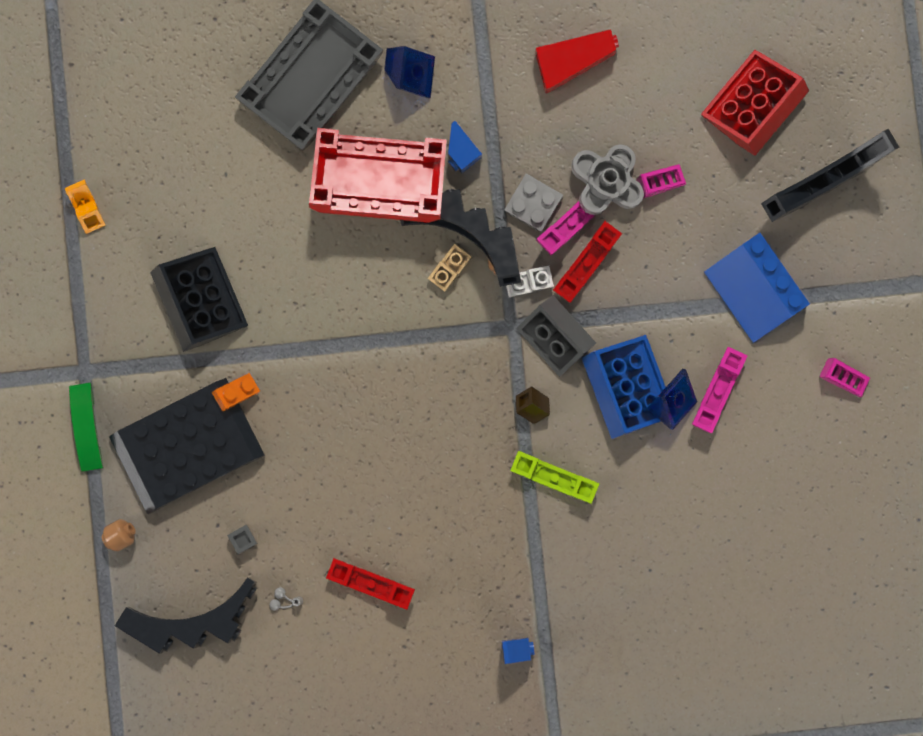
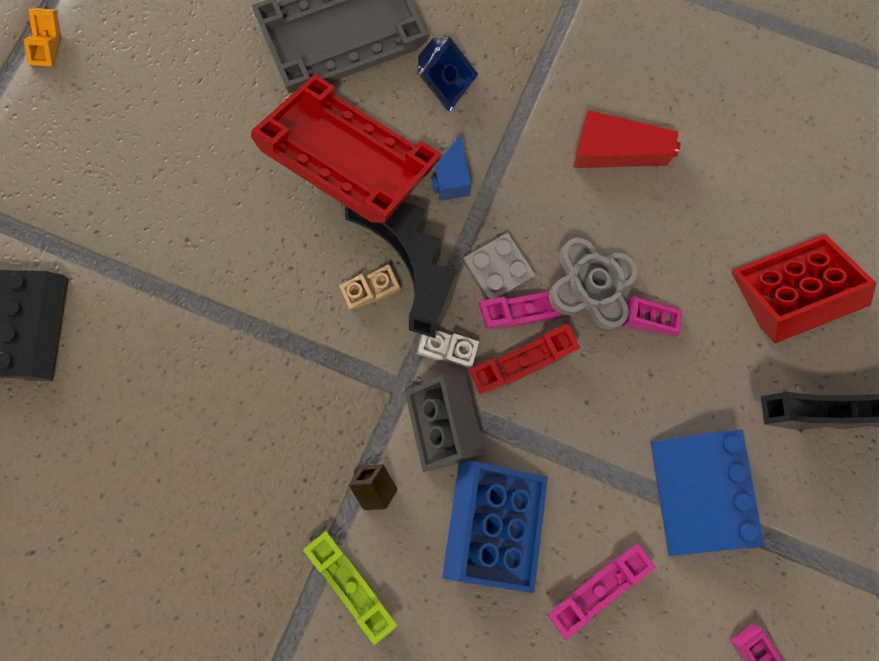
camera: 25 degrees right, 10 degrees down
(198, 298) = (90, 180): black slope -> none
(236, 392) = (61, 294): orange plate -> none
(370, 583) = (67, 594): red slope -> none
(674, 400) = (540, 574): clear blue slope -> none

